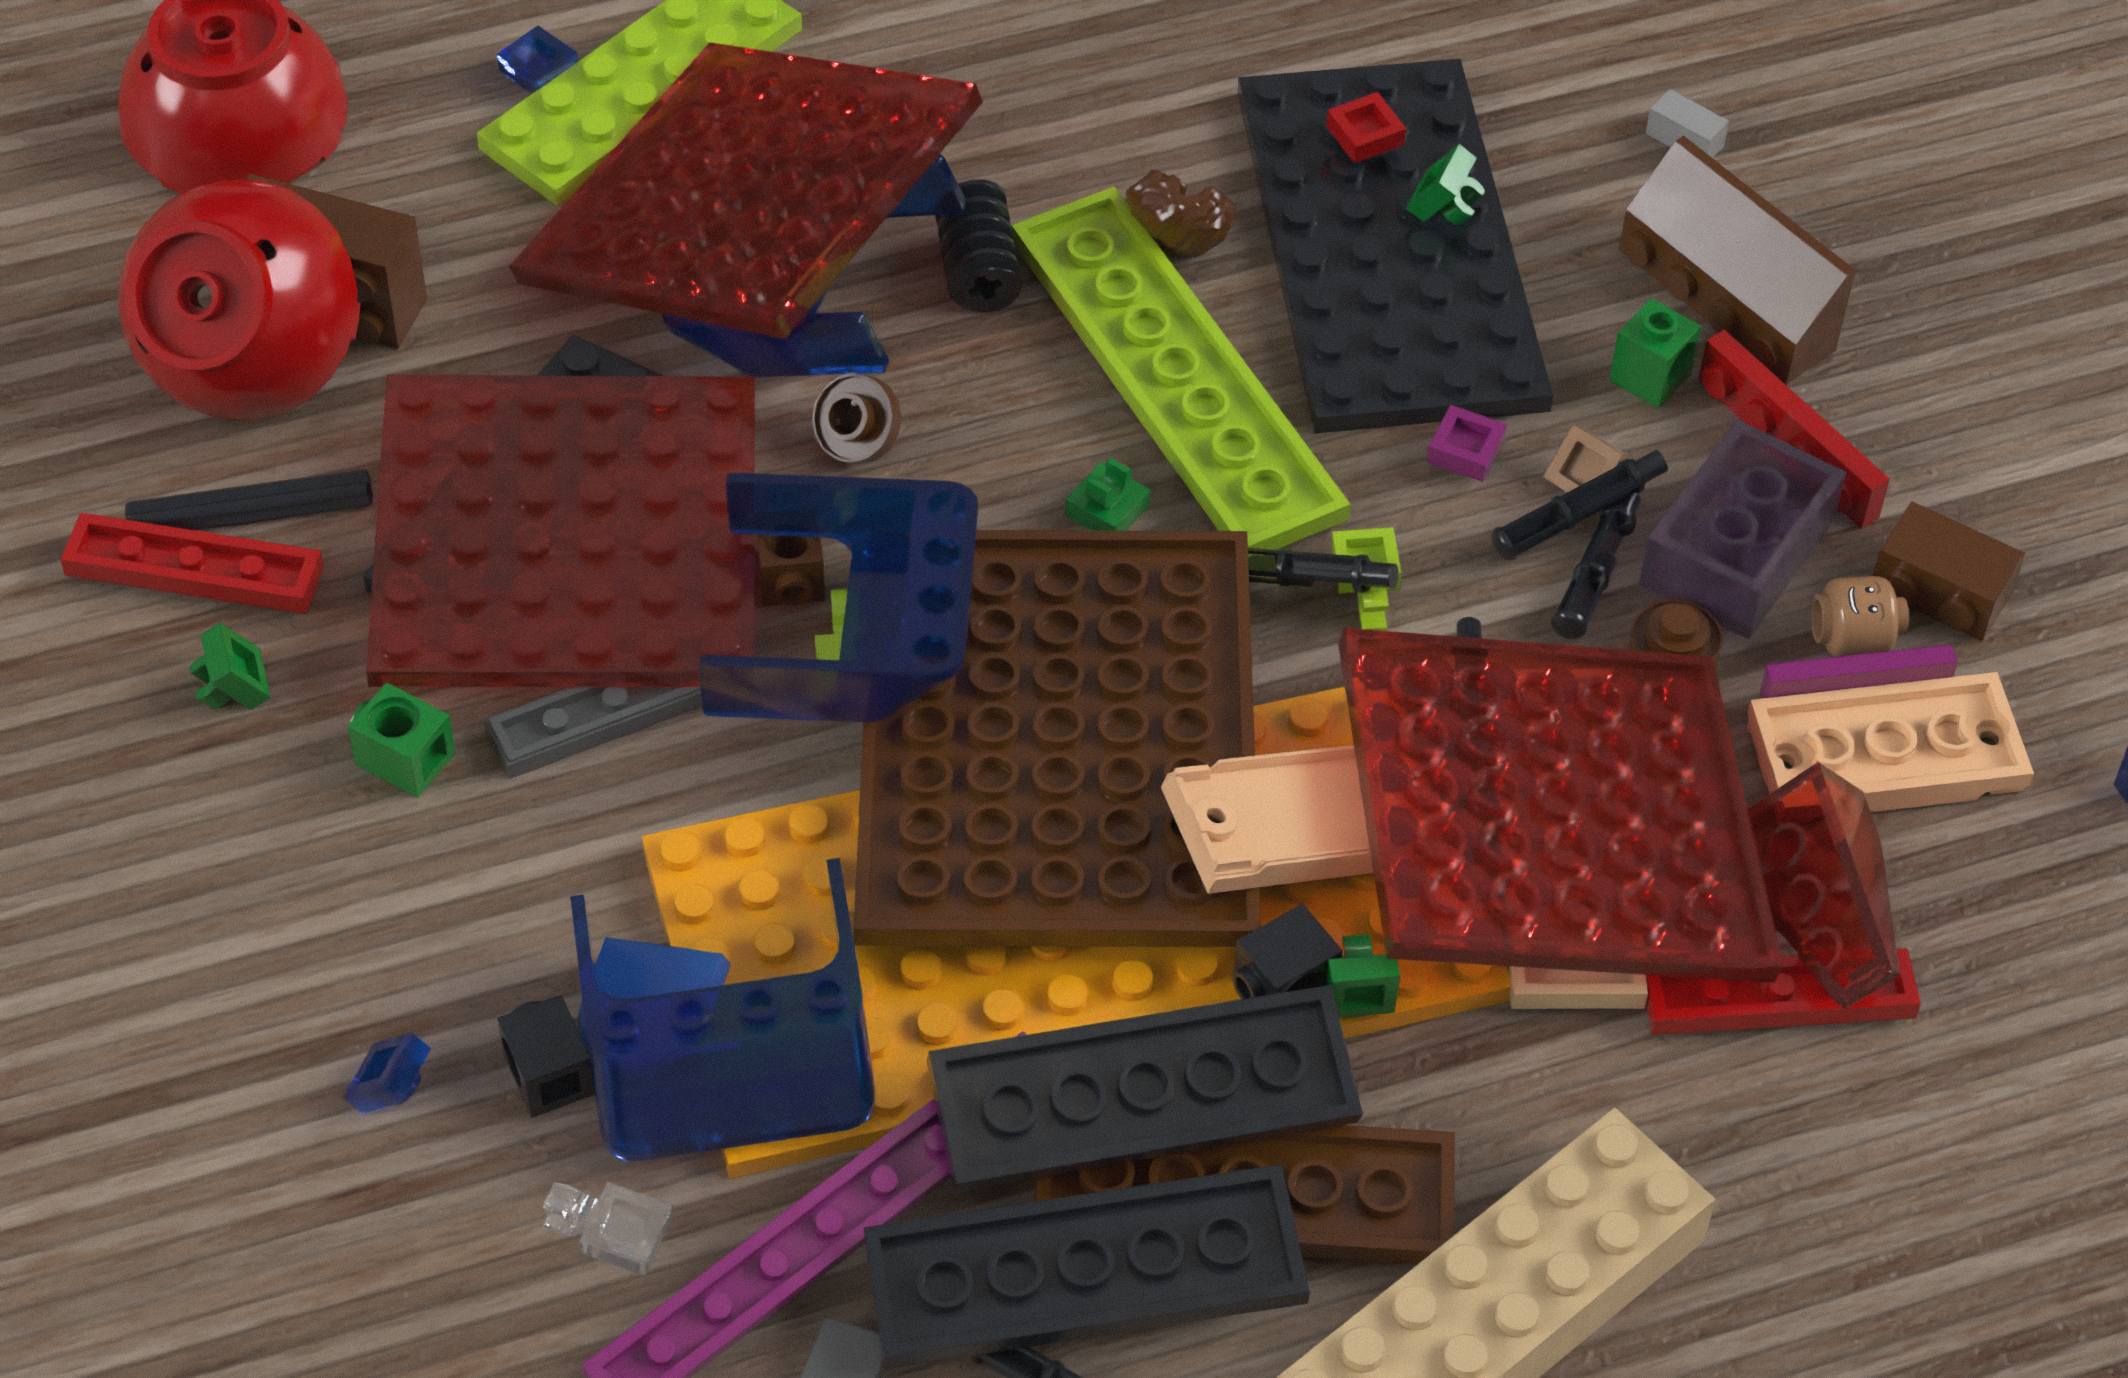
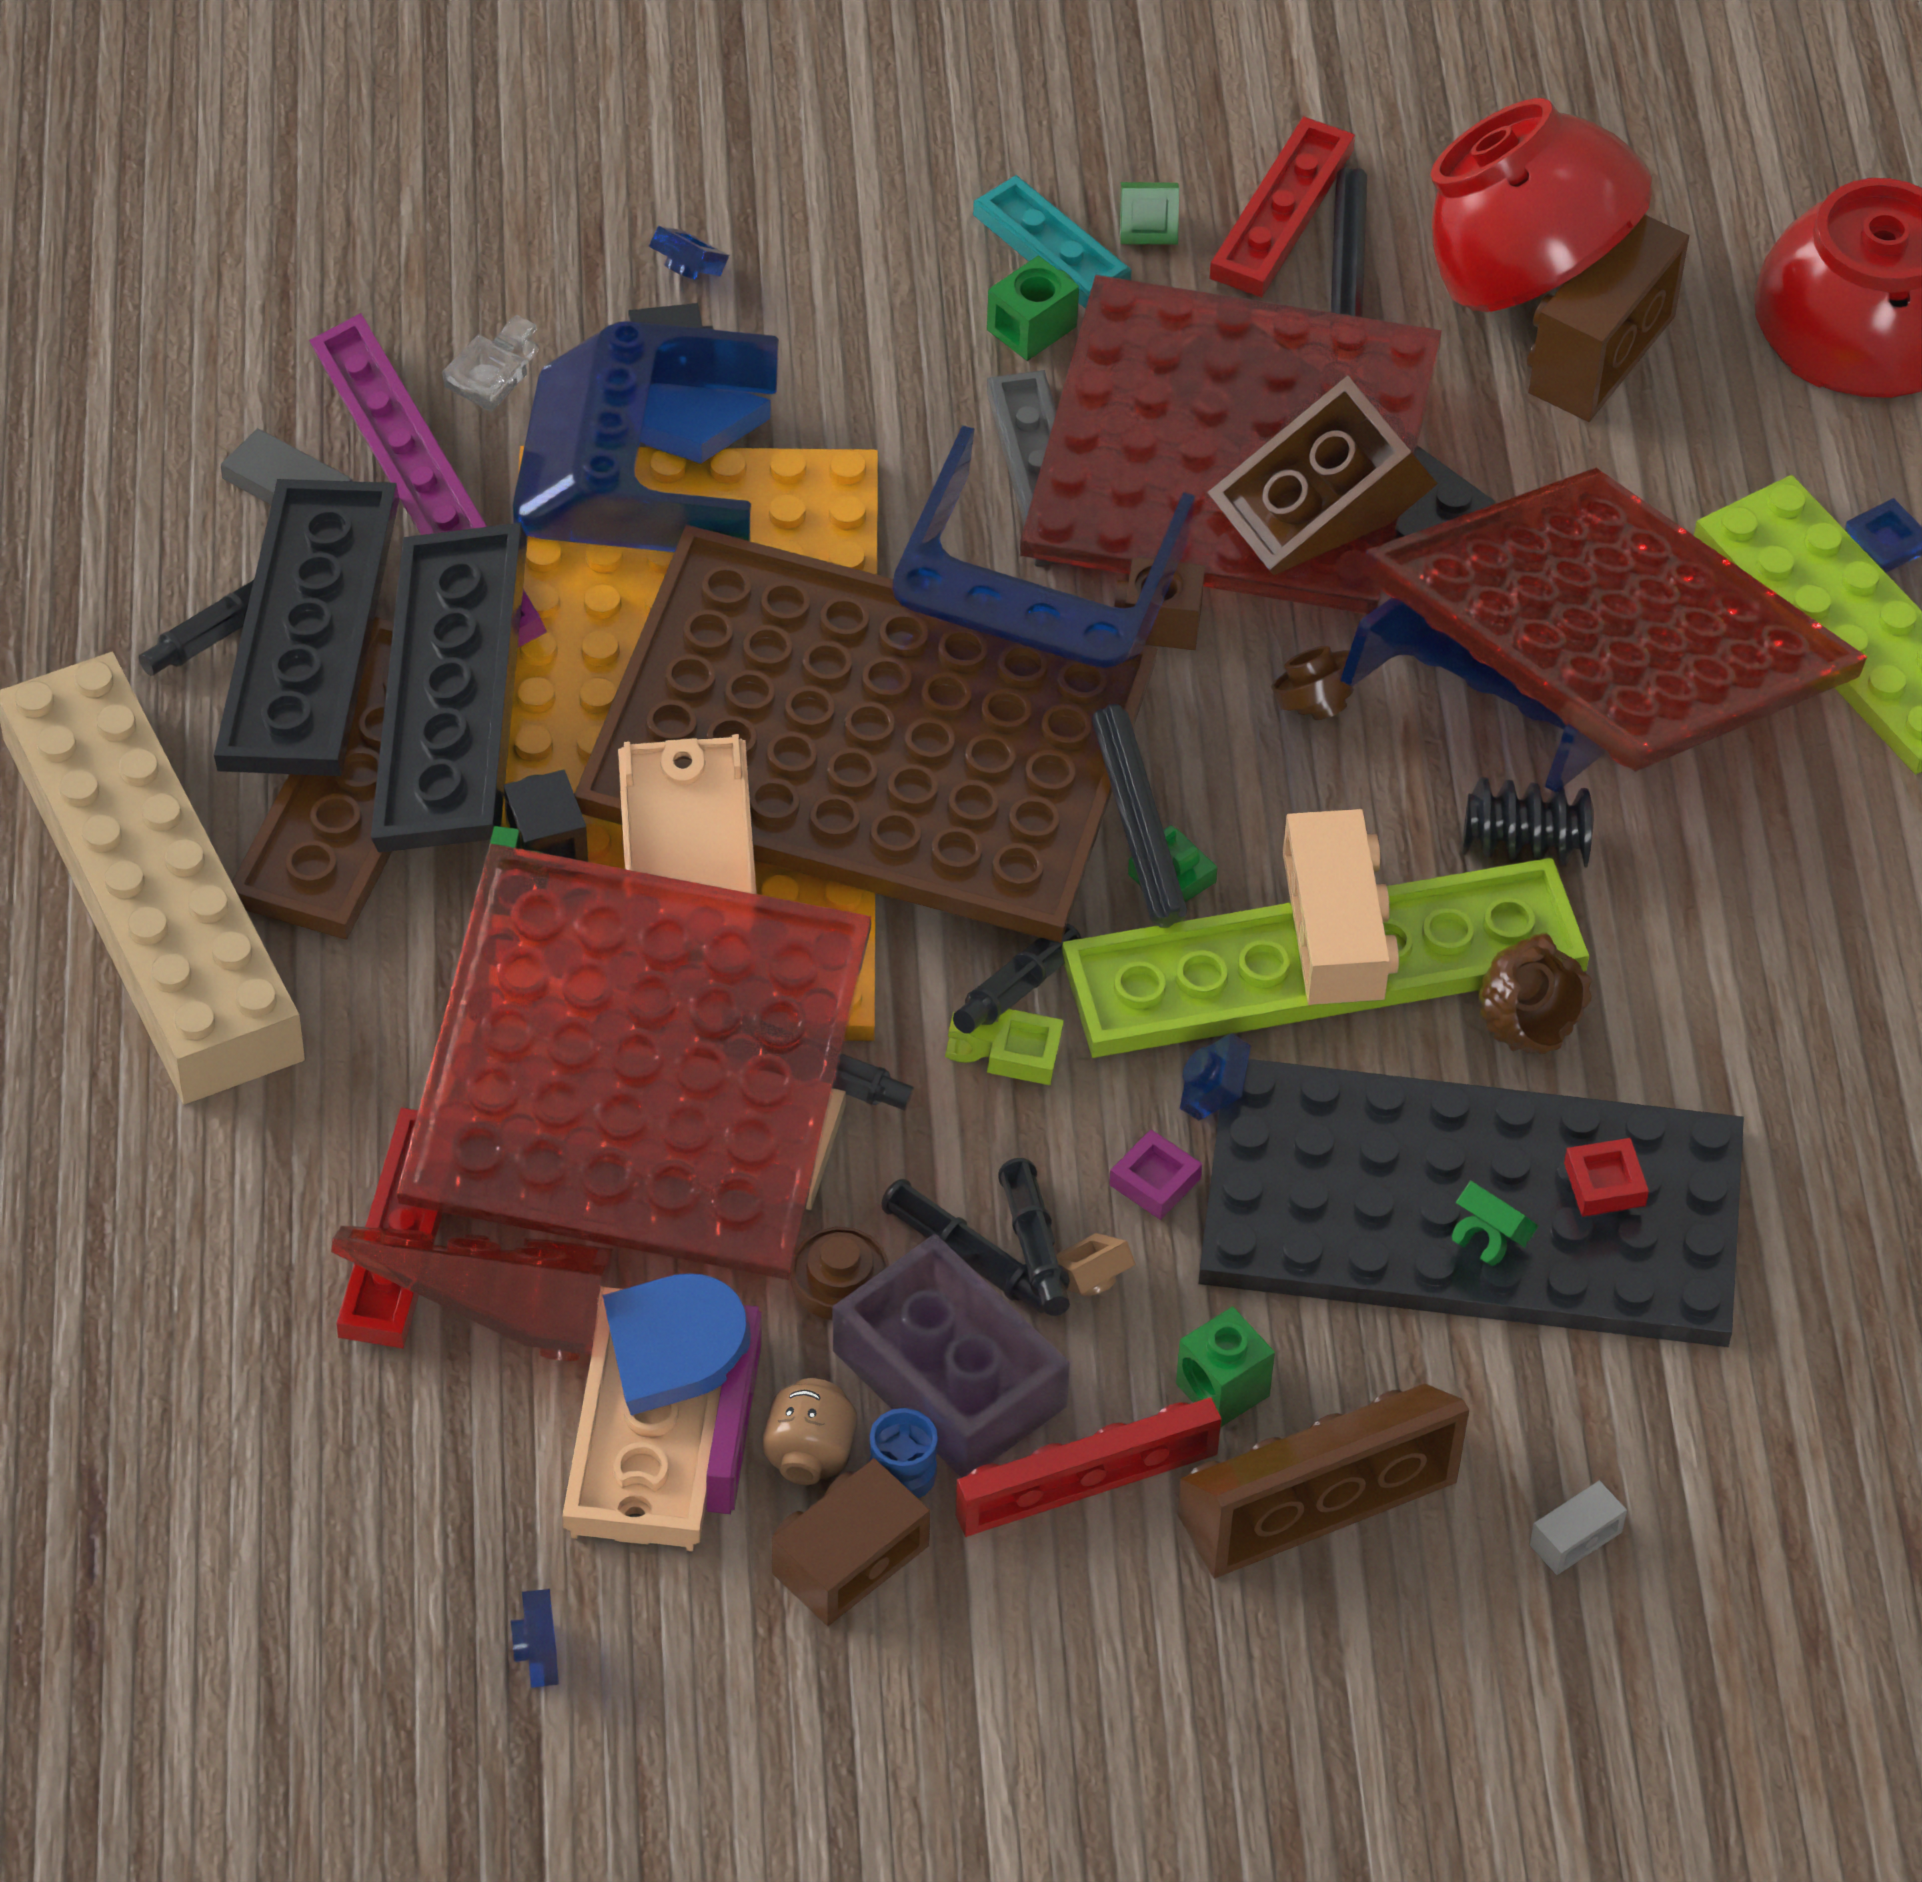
camera: 105 degrees right, 0 degrees up
(276, 760) = (1041, 229): none -> teal tile
(650, 407) = (1322, 481): none -> reddish brown slope
(1094, 496) = (1139, 816): none -> black axle
(1149, 339) = (1338, 906): none -> light nougat brick
(1348, 416) = (1214, 1076): none -> clear blue plate
(1835, 711) = (675, 1338): none -> blue tile
(1843, 548) = (907, 1447): none -> blue wheel

